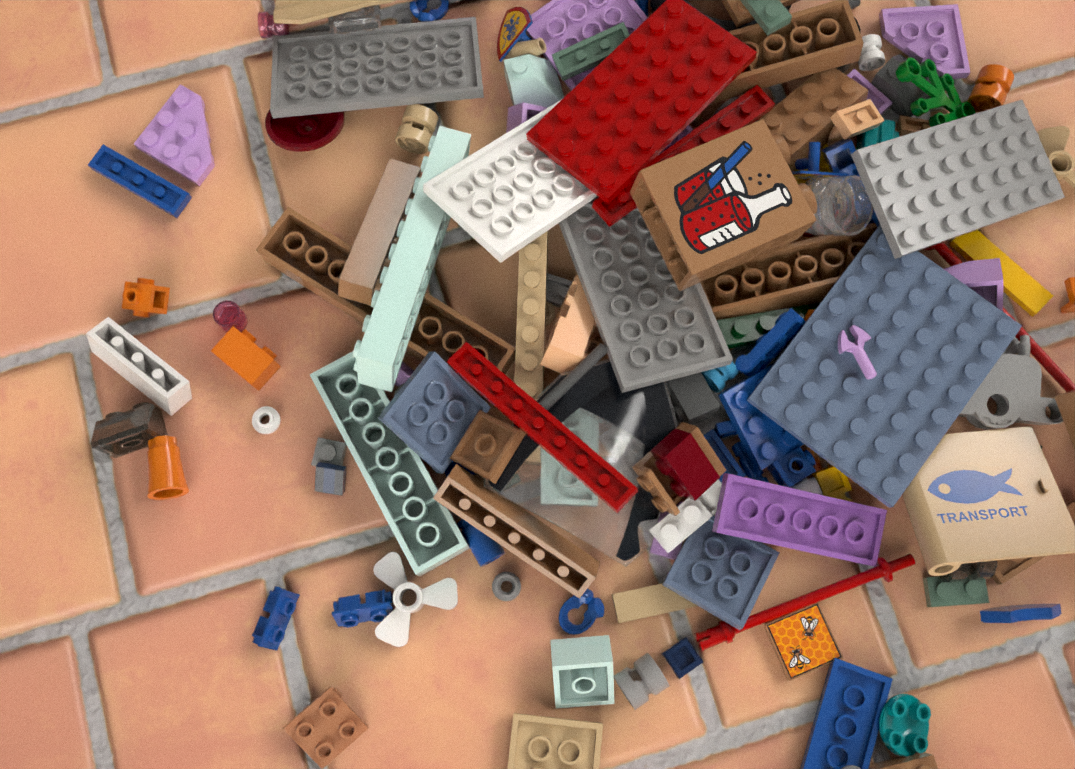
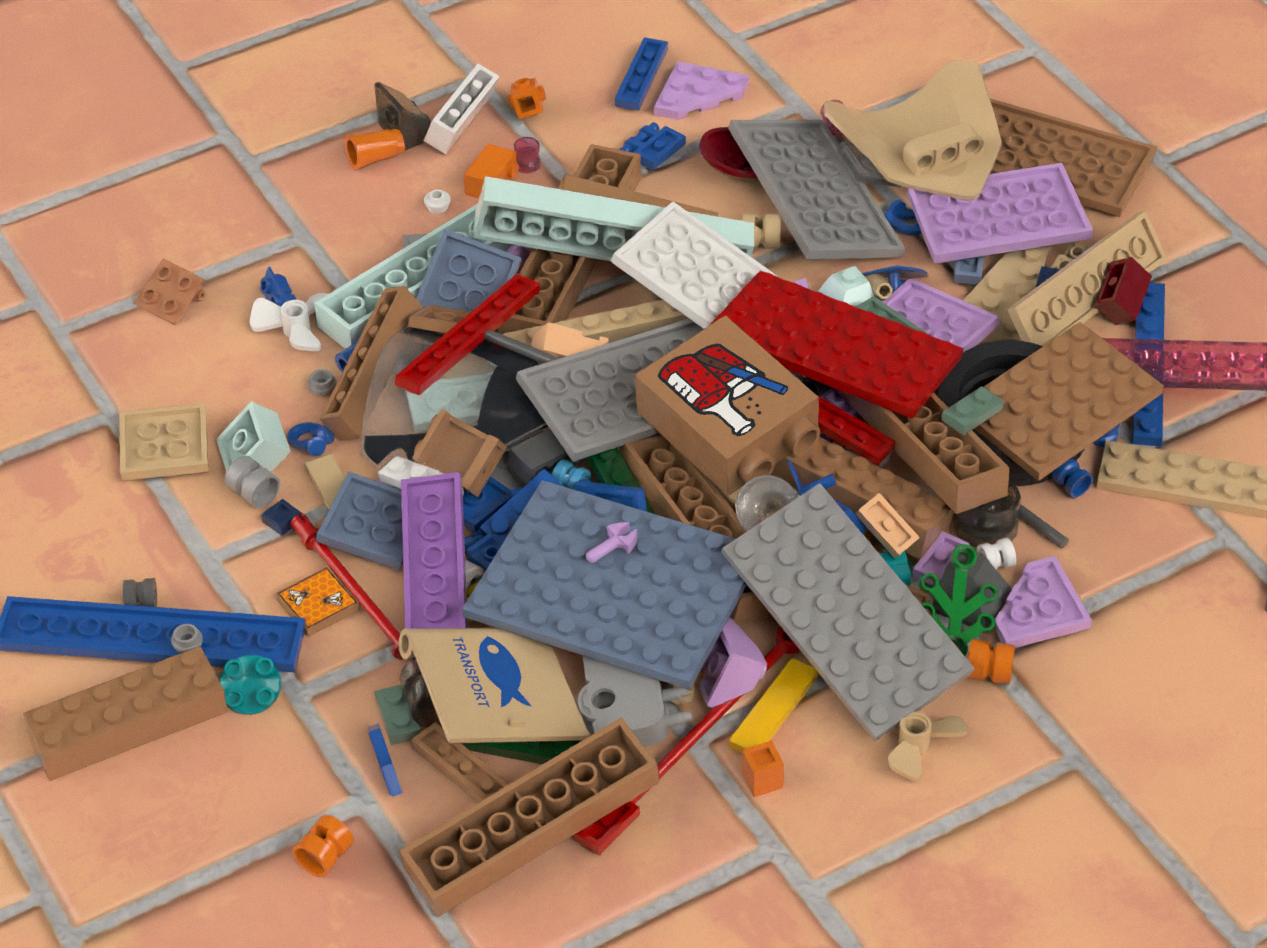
camera: 75 degrees right, 30 degrees down
(259, 190) = (657, 145): none -> blue plate
(271, 630) = (257, 243): blue hinge -> none
(330, 478) = (392, 245): tile -> none
(684, 464) = (459, 443): dark red brick -> none

